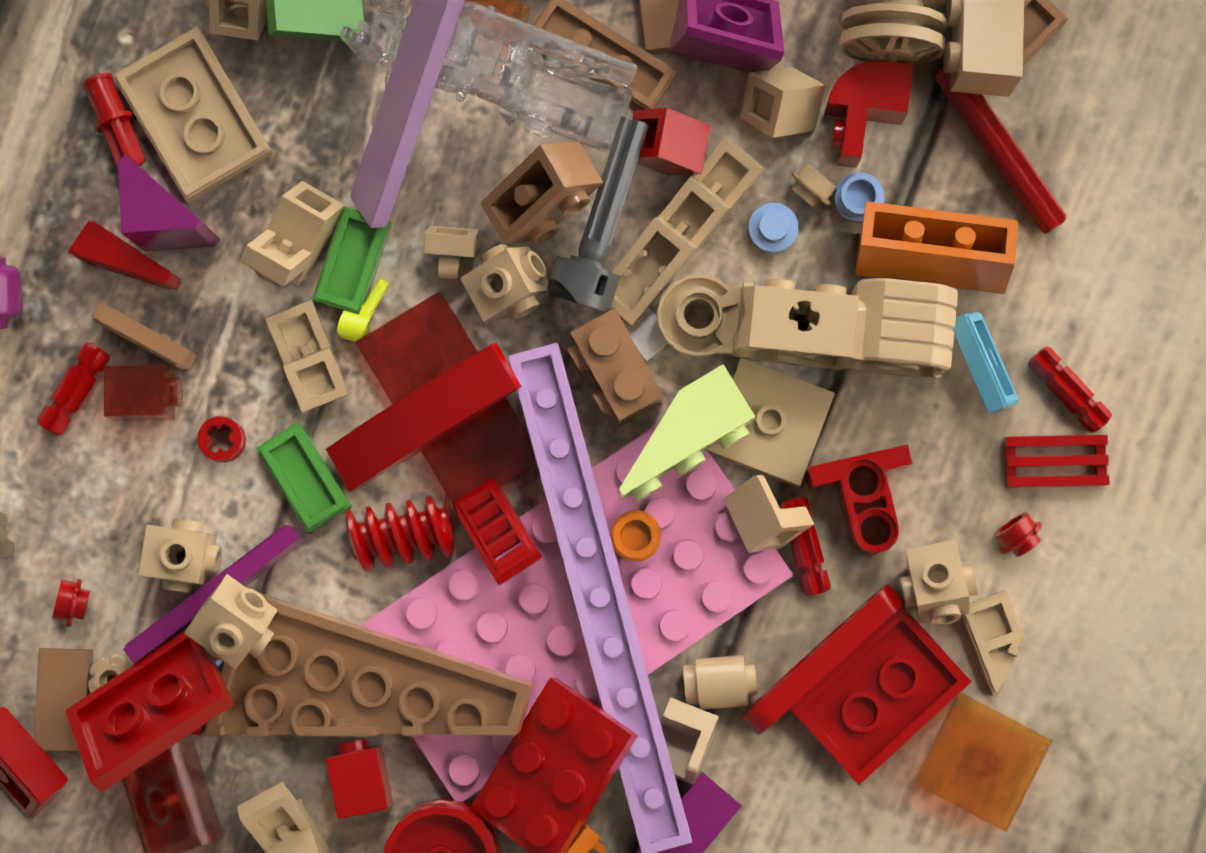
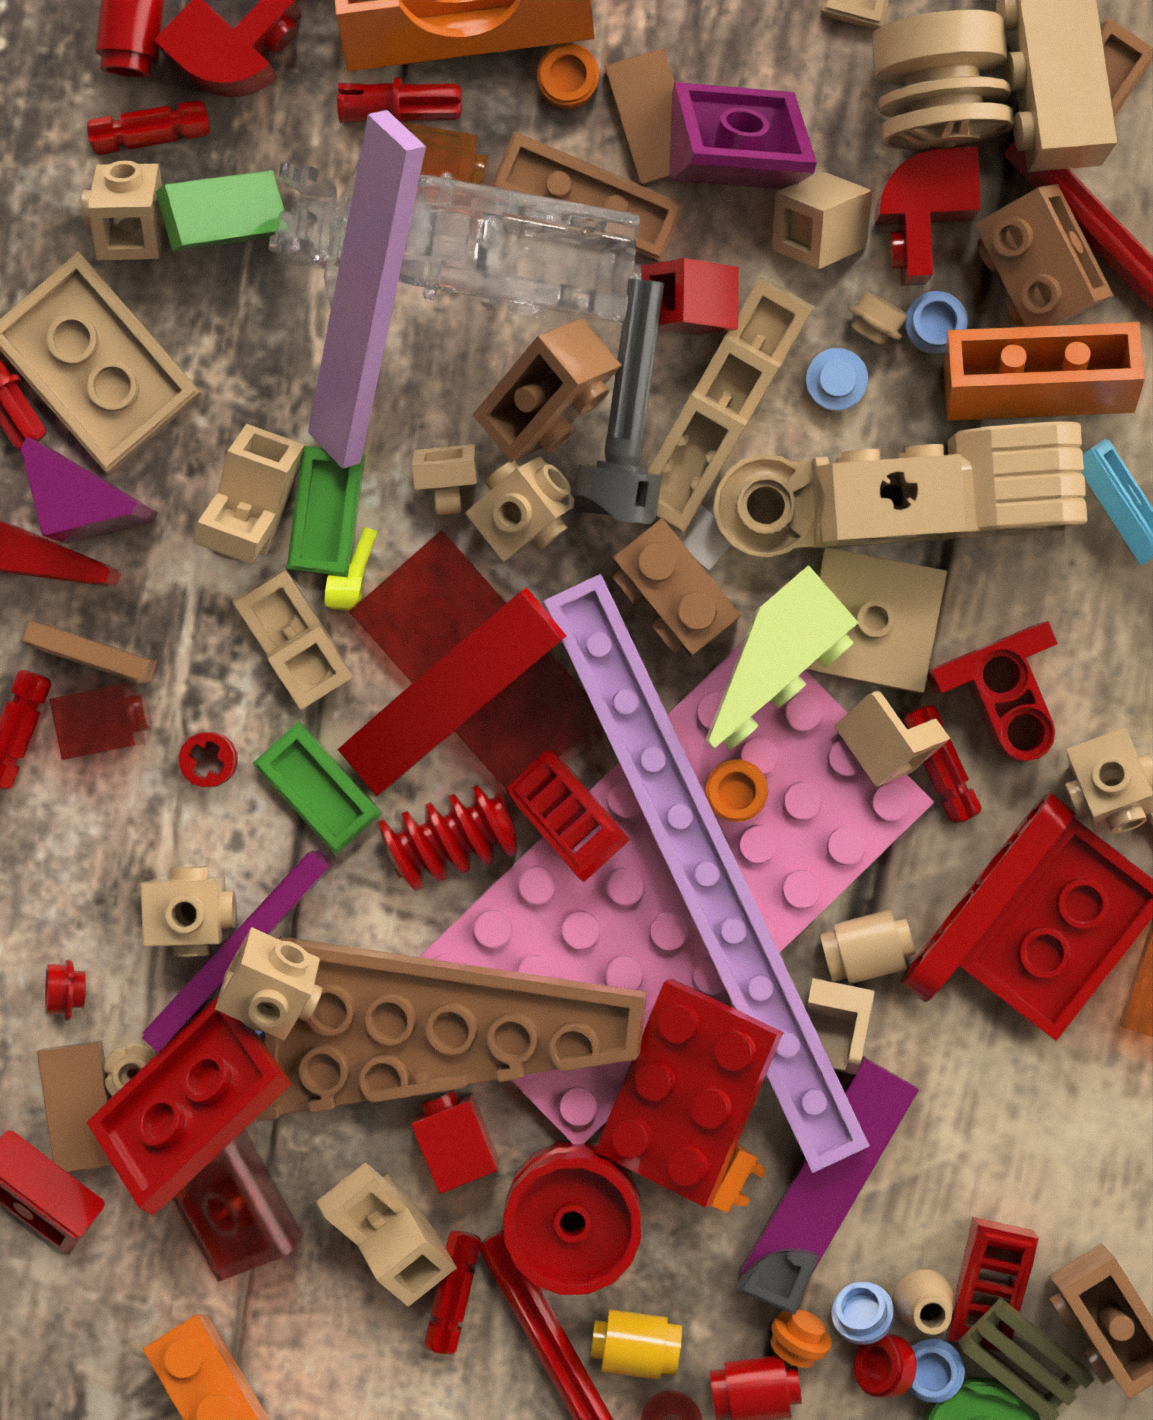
camera: 15 degrees left, 5 degrees up
(950, 160) = (1041, 259): none -> medium nougat brick

